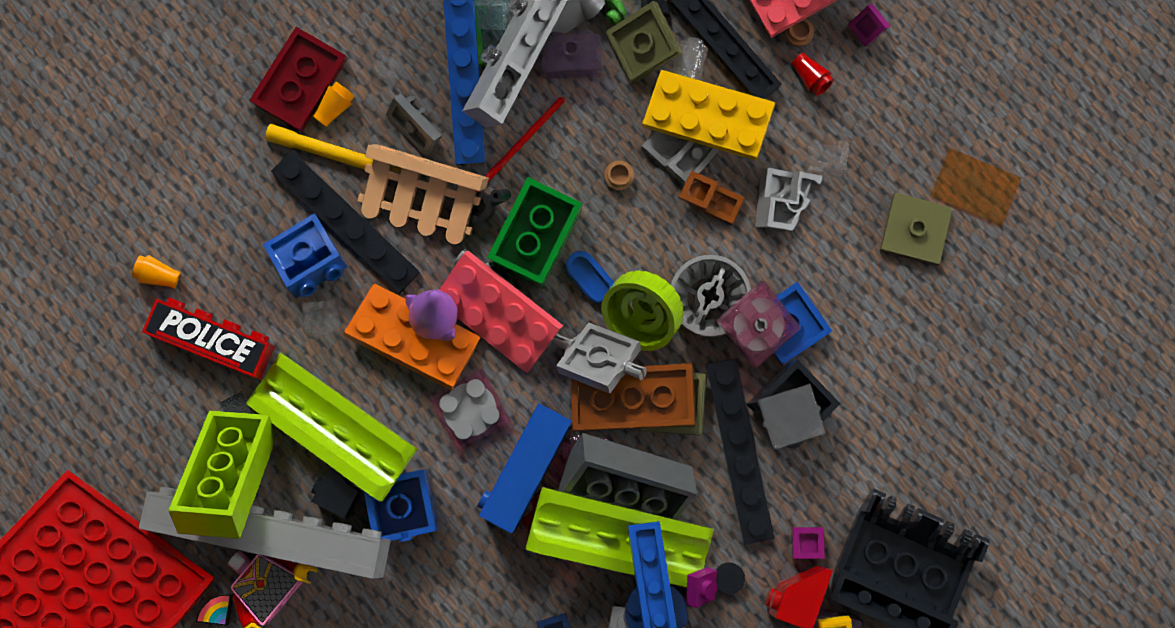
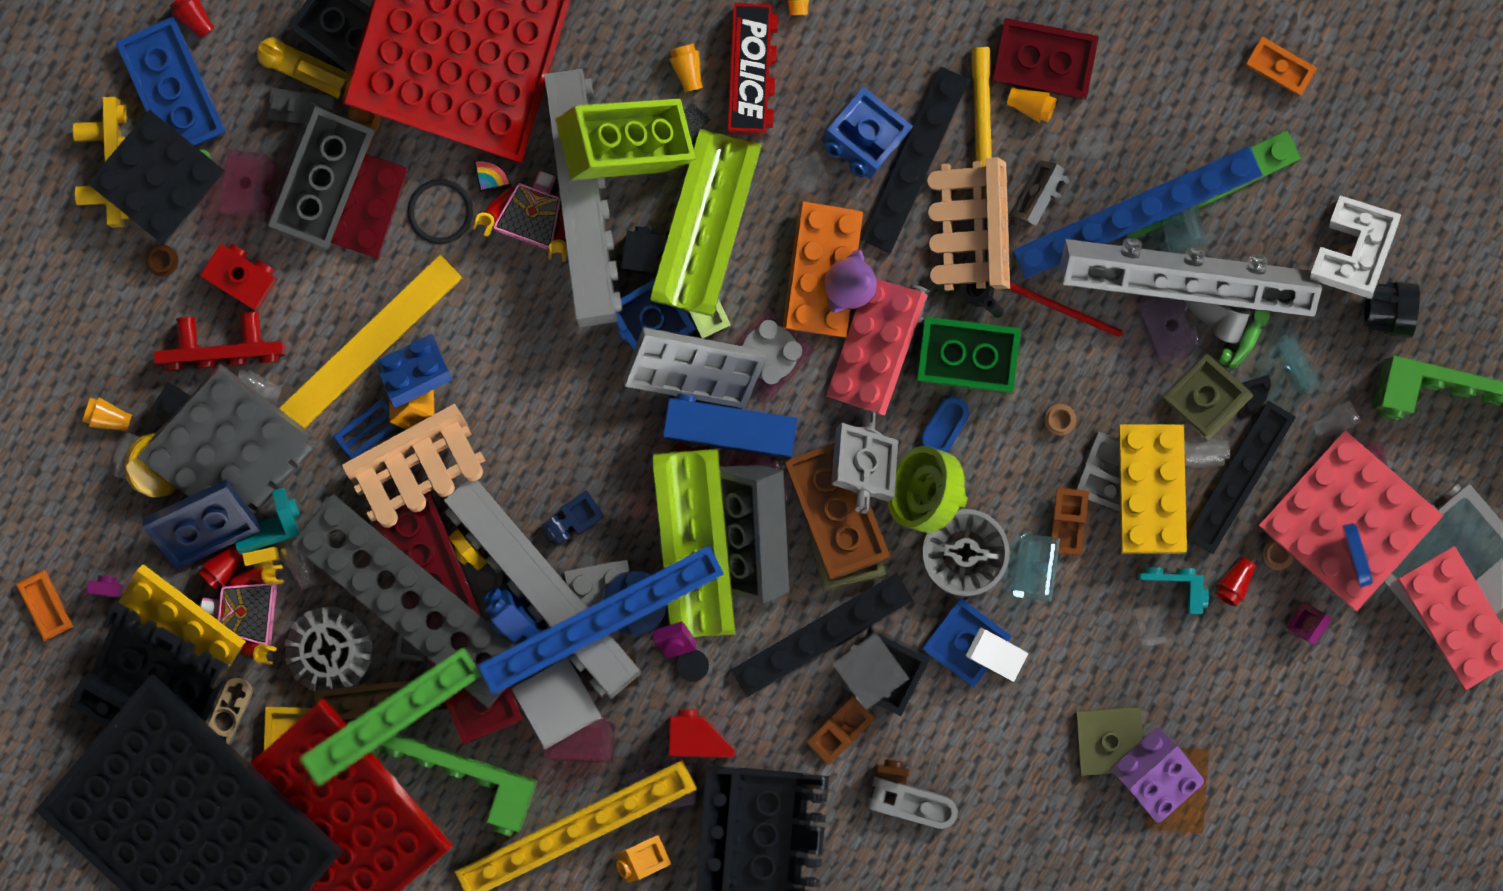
camera: 80 degrees right, 5 degrees up
(184, 395) = (686, 64): none -> light orange cone
(425, 453) = (710, 325): none -> yellowish green plate
(457, 483) = (694, 367): none -> light grey plate
(743, 239) = (1036, 567): none -> clear light blue slope
(758, 324) = (952, 609): clear pink piece -> none
(782, 209) = (1083, 597): light grey slope -> none
(807, 542) = (753, 731): magenta plate -> none
(810, 110) = (1196, 595): none -> teal bracket
(810, 300) = (997, 654): none -> white slope
(831, 463) = (841, 730): none -> dark orange slope
(882, 429) = (892, 770): none -> reddish brown bracket
(919, 421) = (913, 804): none -> light grey plate
(960, 196) = (1158, 775): none -> medium lavender bracket

